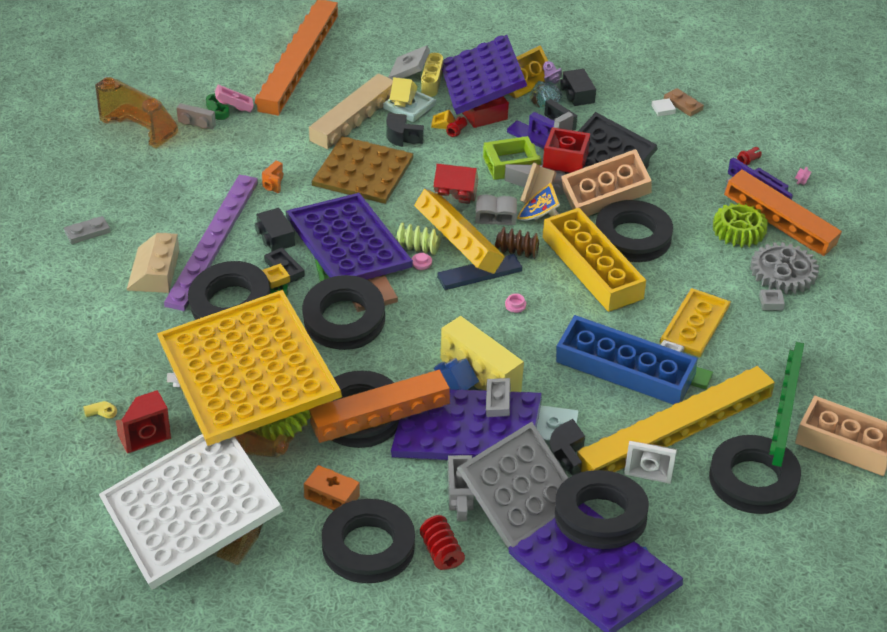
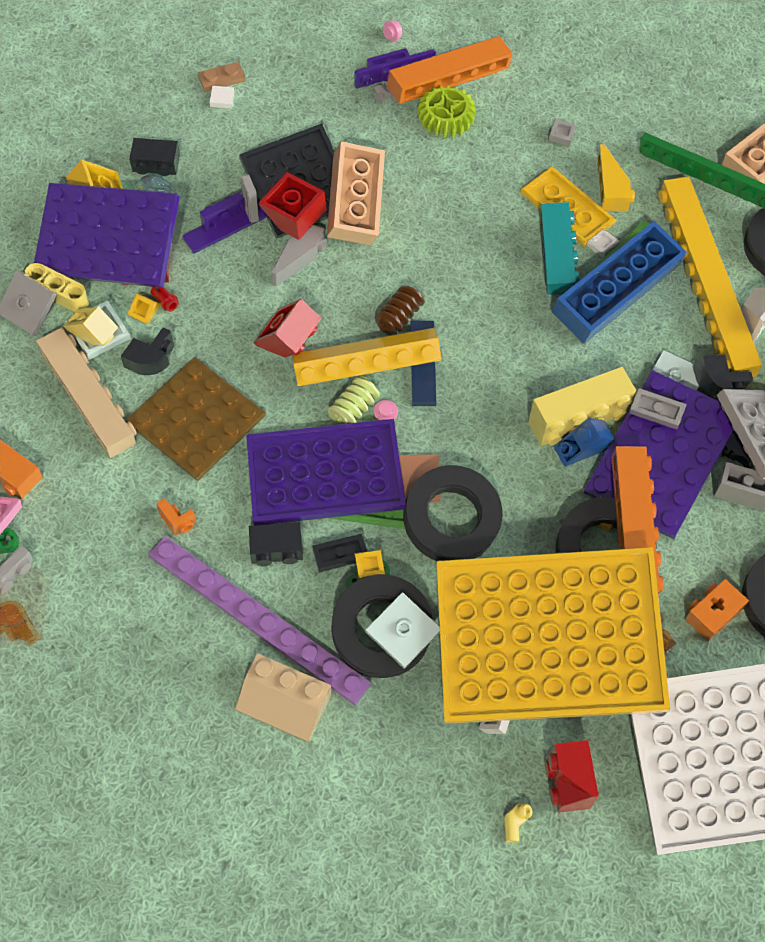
camera: 70 degrees left, 20 degrees up
(87, 230) = (176, 763): light grey plate -> none
(224, 295) = (403, 630): none -> light aqua plate
(493, 149) = (244, 282): lime window -> none
(496, 210) = (334, 309): light grey brick -> none
(515, 303) = (487, 347): bright pink plate -> none
(537, 179) = (322, 256): tan panel -> none
(540, 204) = (351, 265): shield -> none
(551, 73) = (130, 172): lavender hinge -> none
(554, 110) = (198, 191): black plate -> none
(594, 259) = (456, 252): yellow brick -> none
(641, 213) = (423, 176): black tyre -> none
(644, 314) = (558, 247): none -> teal brick
(734, 341) = (613, 183): none -> yellow slope
(748, 156) = (341, 63): red pin -> none
(784, 267) = (522, 103): light grey gear -> none

